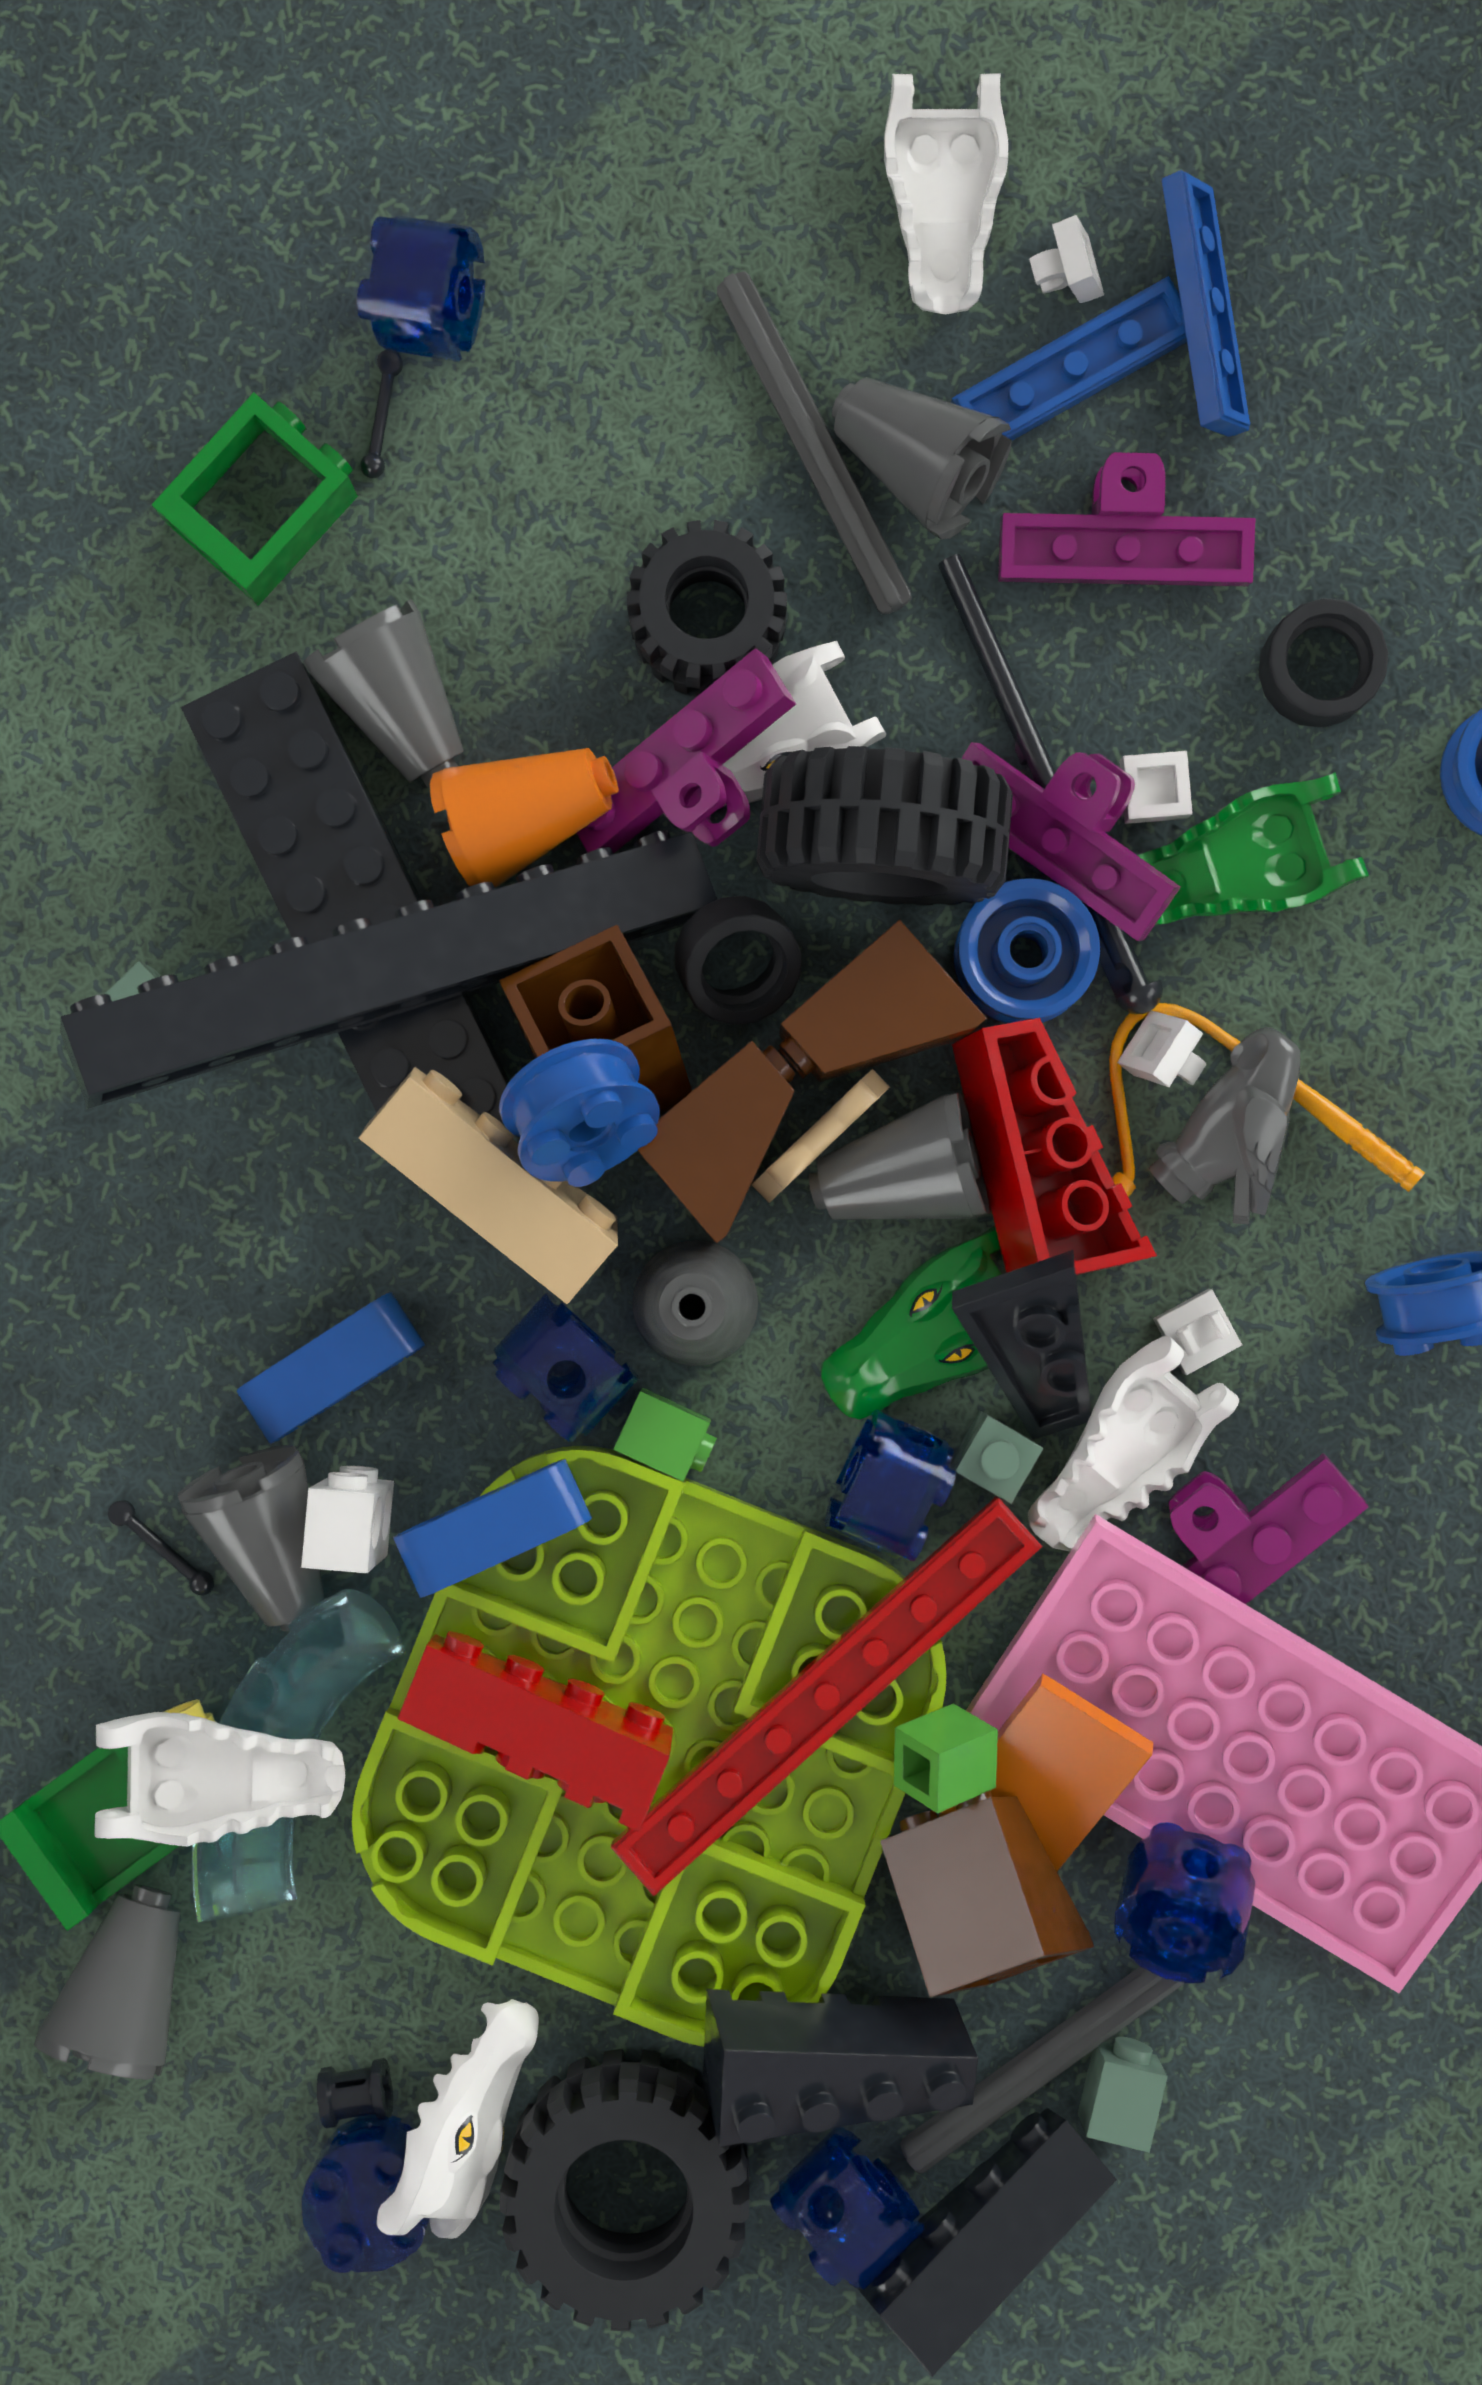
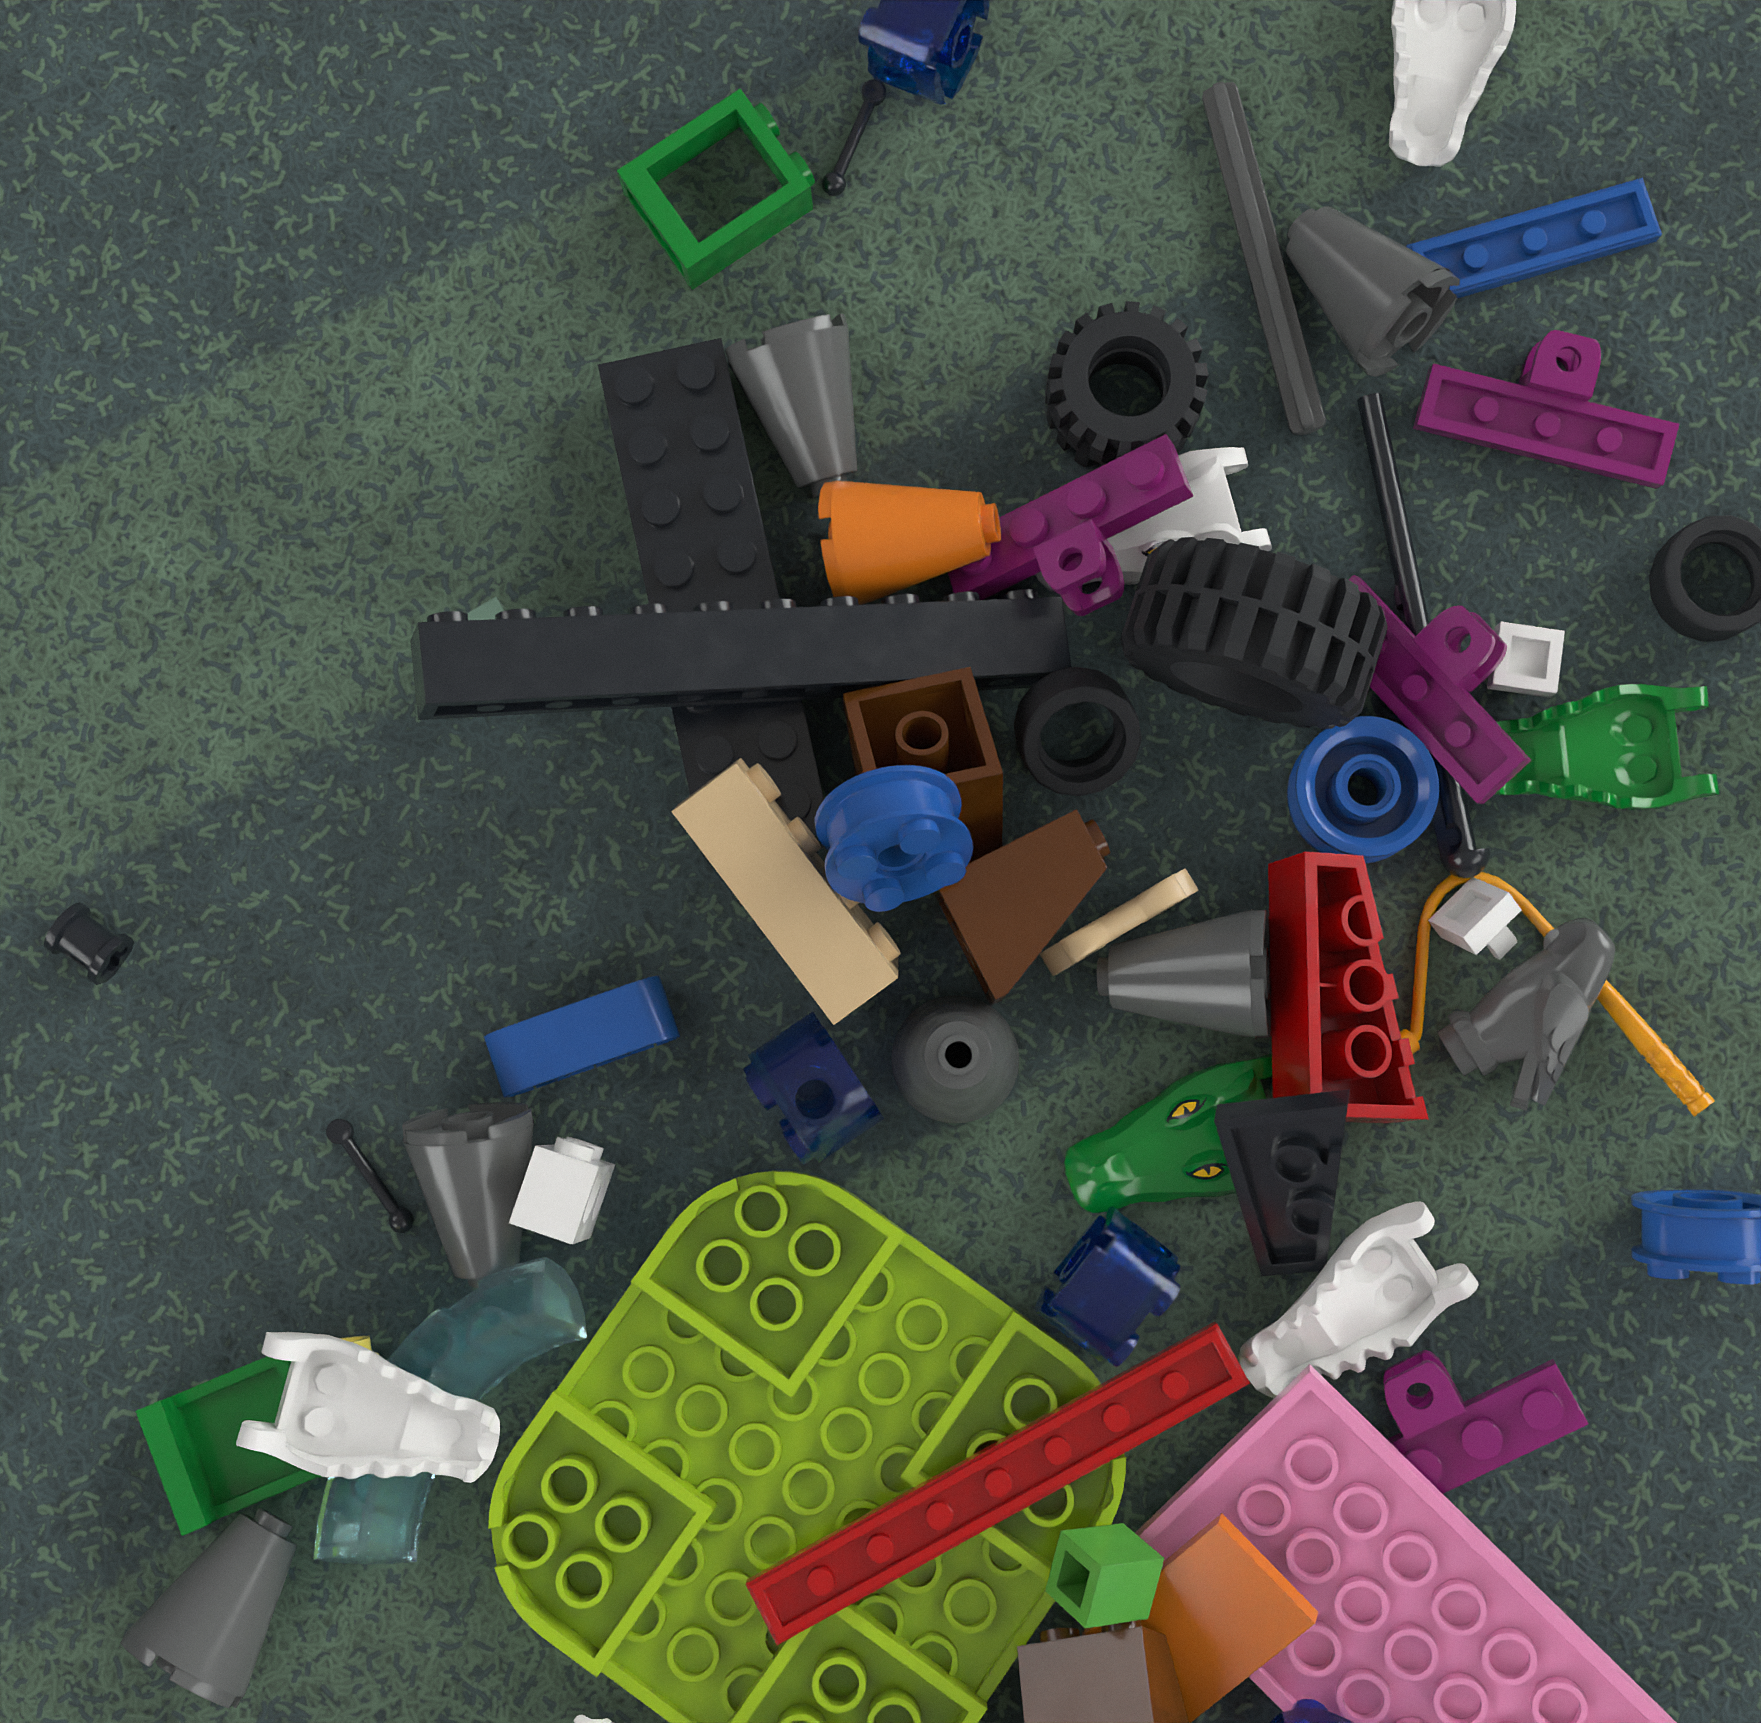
camera: 20 degrees right, 5 degrees down
(492, 1528) = (705, 1231): blue beam -> none
(540, 1725) = (705, 1441): red wedge -> none
(665, 1436) = (896, 1183): bright green brick -> none
(877, 1011) = (1206, 812): reddish brown slope -> none
(995, 1457) = (1222, 1282): sand green brick -> none
(1069, 264) = (1549, 144): white tile -> none
(1199, 1330) = (1455, 1204): white tile -> none
(1206, 304) = (1673, 212): blue tile -> none

